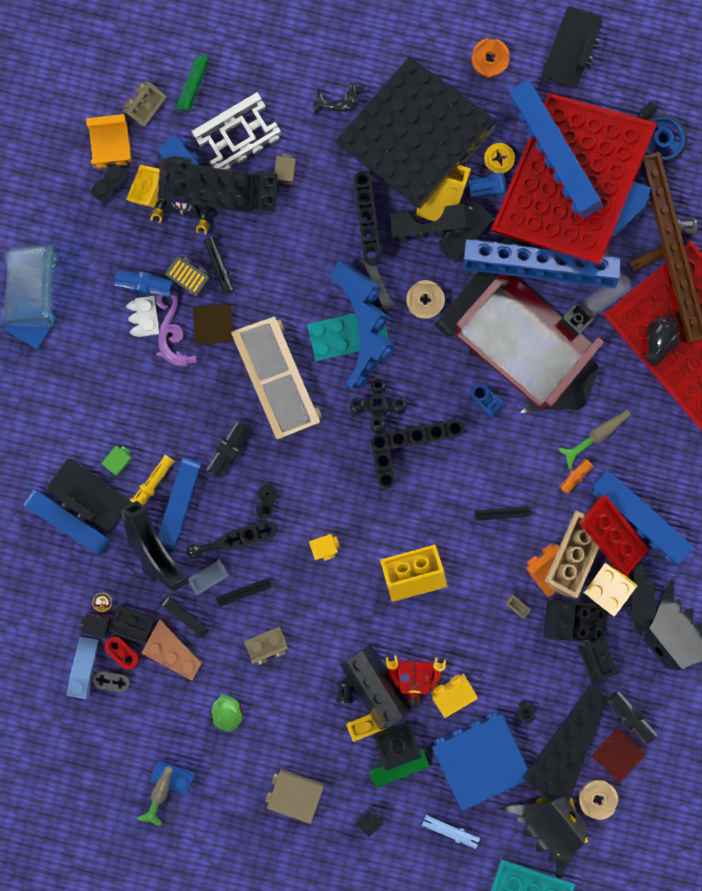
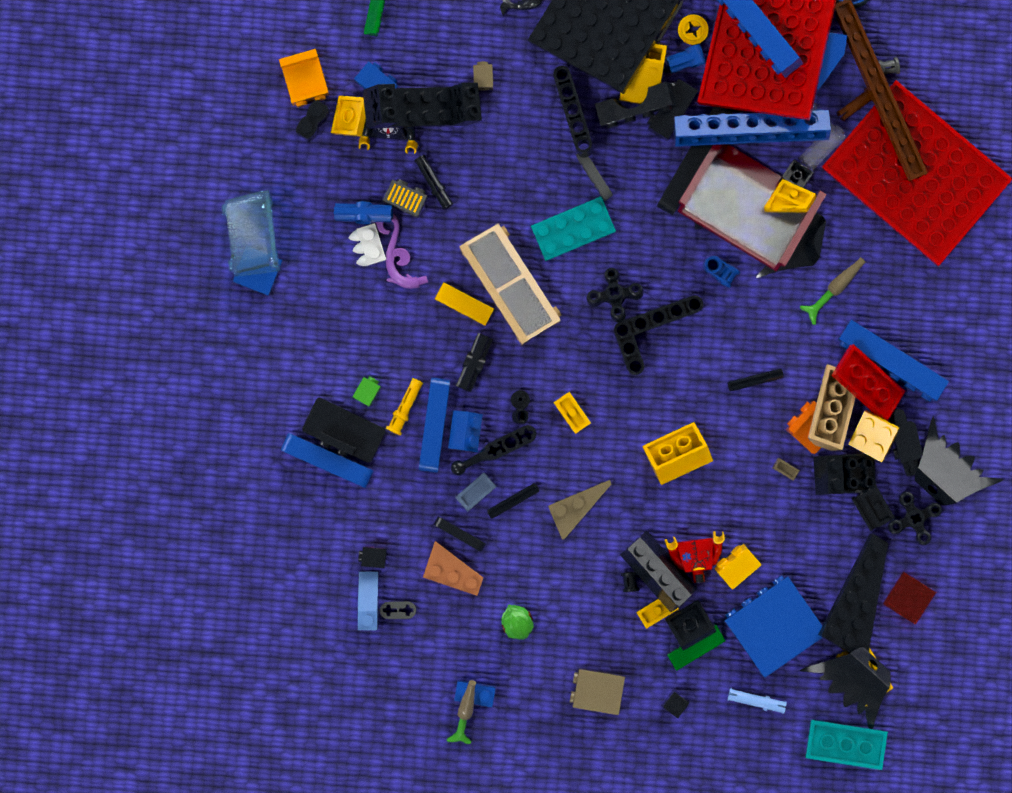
camera: 10 degrees left, 0 degrees up
(102, 602) = (375, 534): tile -> none
(121, 653) = (403, 580): red plate -> none
(131, 624) = (408, 551): black plate -> none
(144, 103) = (332, 33): dark tan bracket -> none
(144, 541) = (420, 480): black arch -> none
(207, 516) = (465, 431): none -> blue brick
(213, 324) = (437, 241): dark brown tile -> none
(228, 121) = (418, 36): white fence -> none
(228, 390) = (464, 304): none -> yellow tile
(266, 645) = (544, 548): dark tan bracket -> none
(299, 611) = (571, 510): none -> dark tan wing
(316, 515) = (572, 412): none -> yellow plate
(324, 547) = (586, 441): yellow brick -> none
(371, 320) = (594, 211): blue arch -> none
(418, 291) = (650, 173): tan plate -> none
(527, 717) = (807, 567): black plate -> none
(567, 340) = (790, 198): none -> yellow wing
(576, 476) = (821, 331): orange pin -> none
(595, 810) = (907, 645): tan plate -> none
(631, 718) = (915, 559): black piece -> none
(636, 669) = (922, 515): none -> black gear
(661, 339) = (882, 182): black animal -> none

